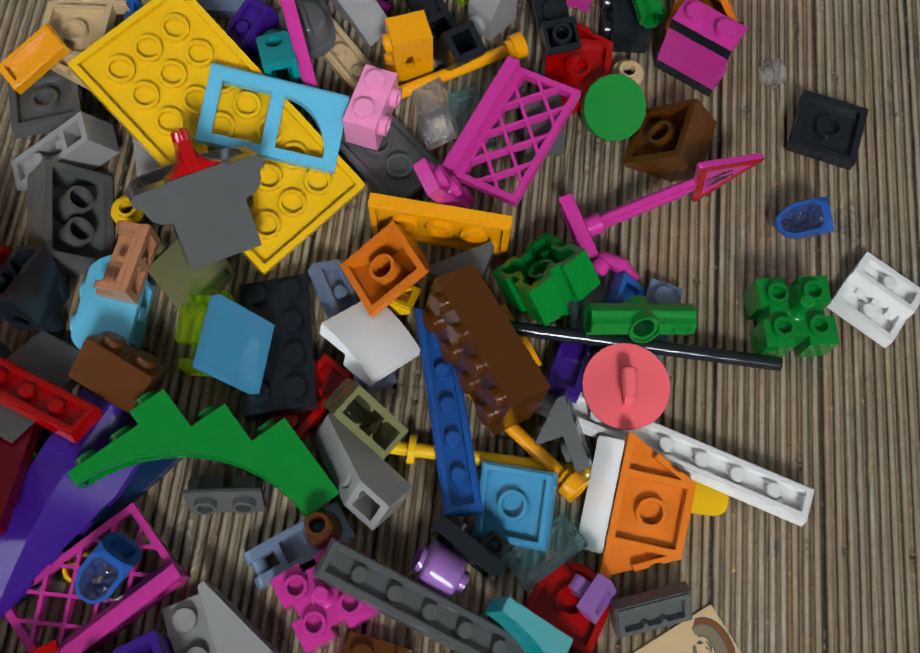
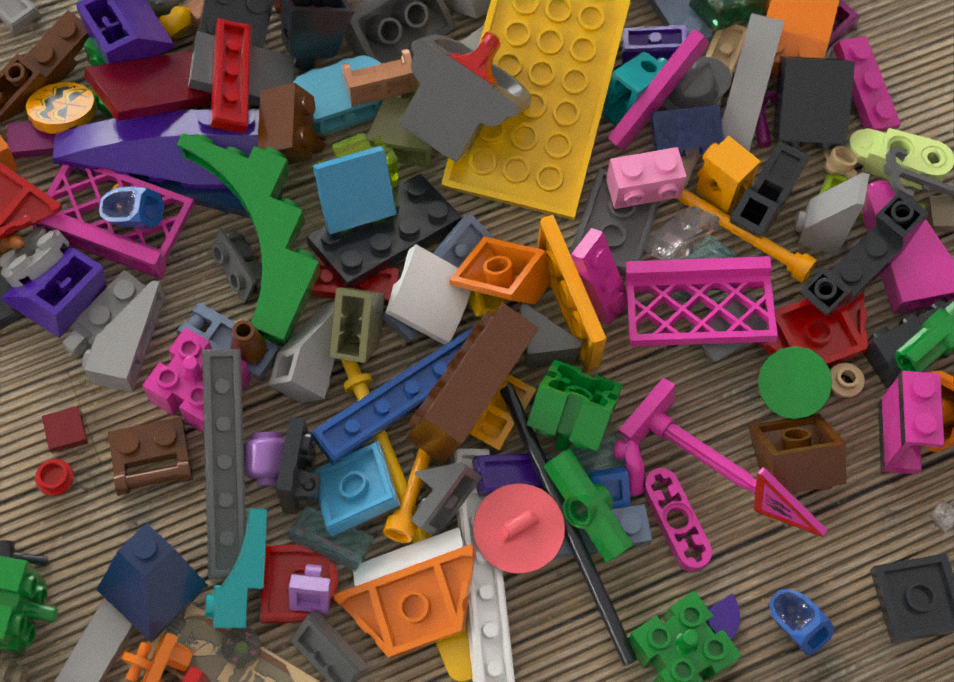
camera: 60 degrees right, 5 degrees down
(323, 105) = (617, 134): medium azure window -> none
(348, 52) = (687, 128): none -> clear blue bracket
(686, 252) = (697, 541): none -> dark pink beam
(773, 268) = (725, 616): none -> dark purple tile

